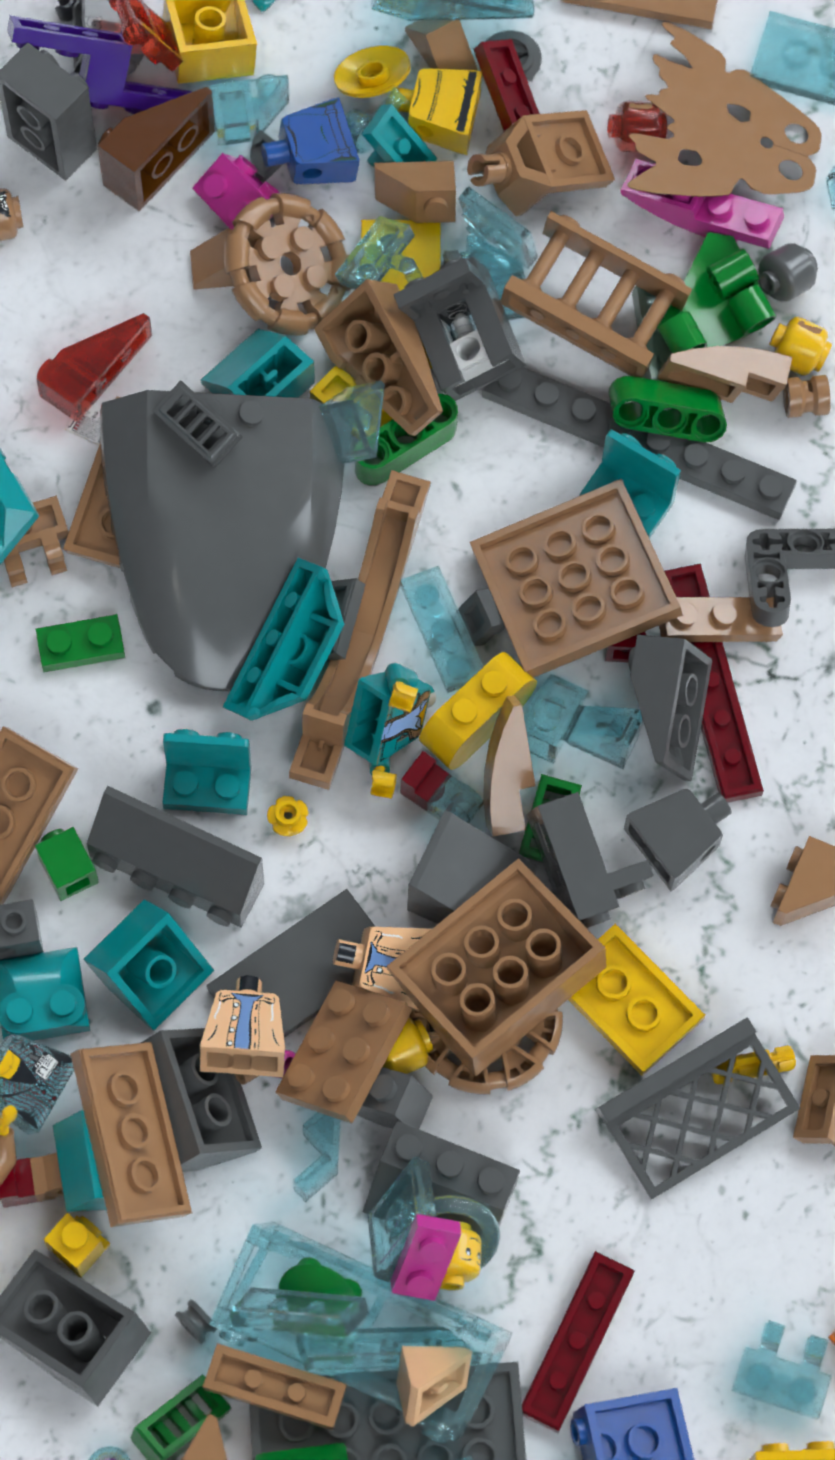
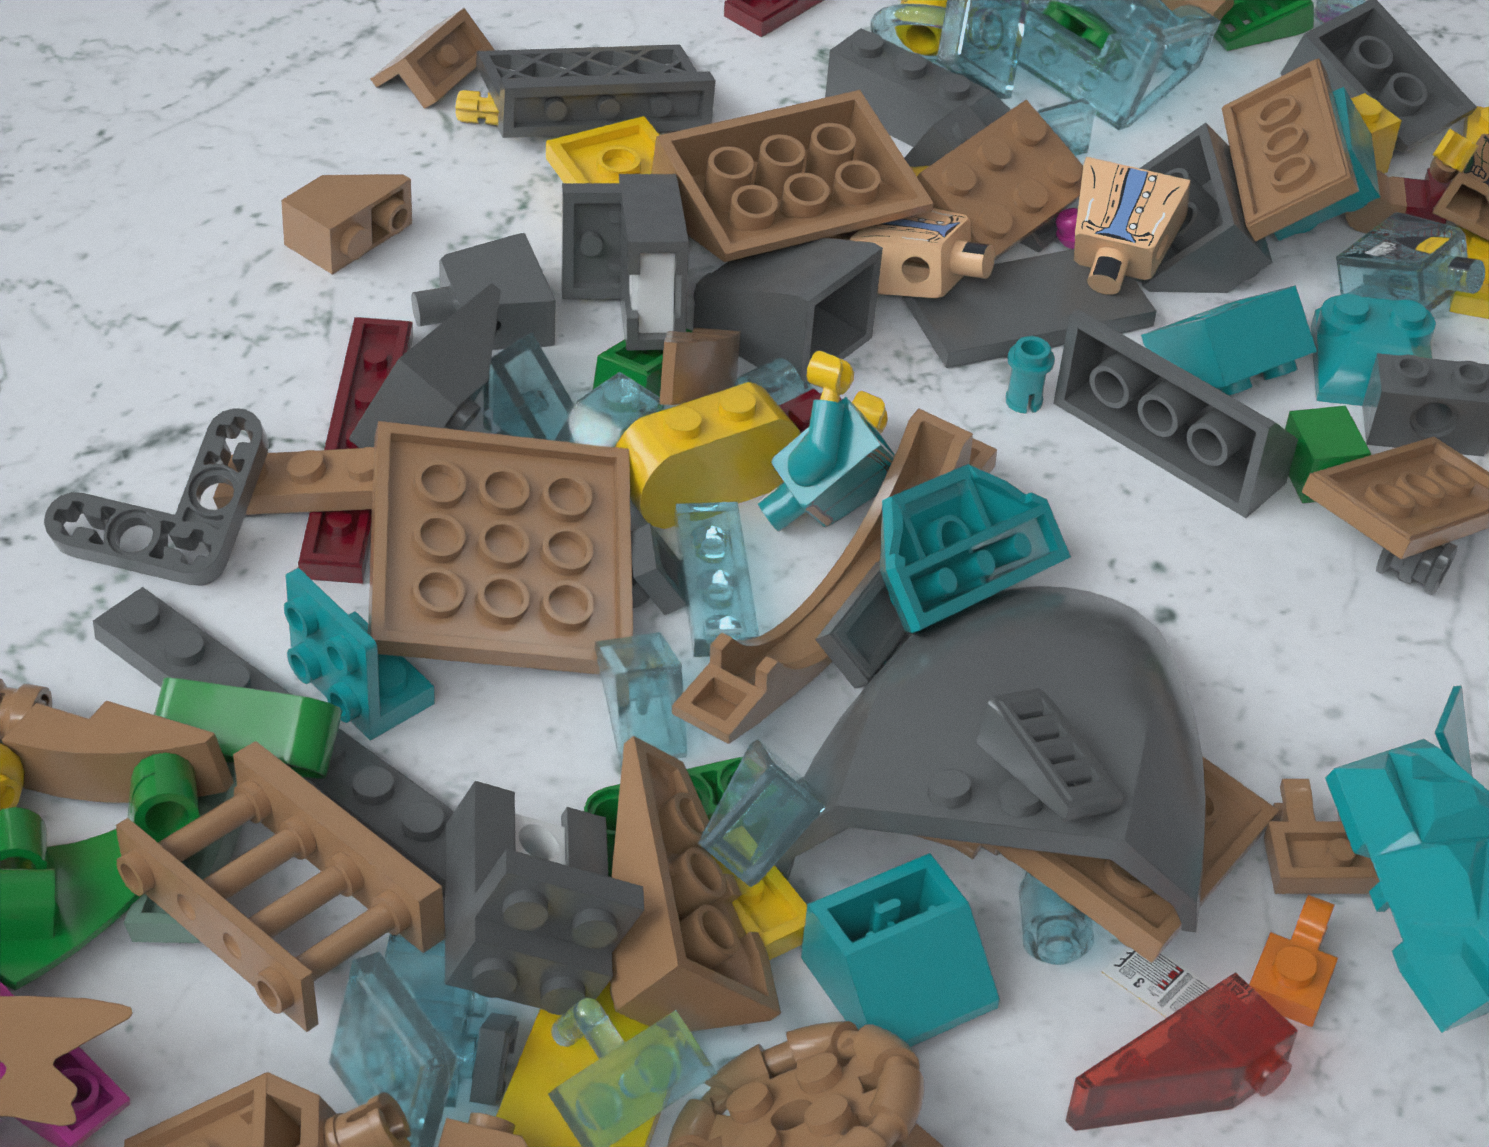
camera: 165 degrees left, 25 degrees down
(40, 450) = (1294, 972): none -> orange plate
(80, 643) = (1266, 703): green plate -> none
(195, 1321) = (1228, 67): dark grey bush -> none
(206, 772) = (1111, 487): teal bracket -> none
(288, 863) = (1029, 364): none -> teal pin
(291, 826) = (1010, 440): yellow plate -> none
(459, 517) = (640, 687): none -> clear light blue slope

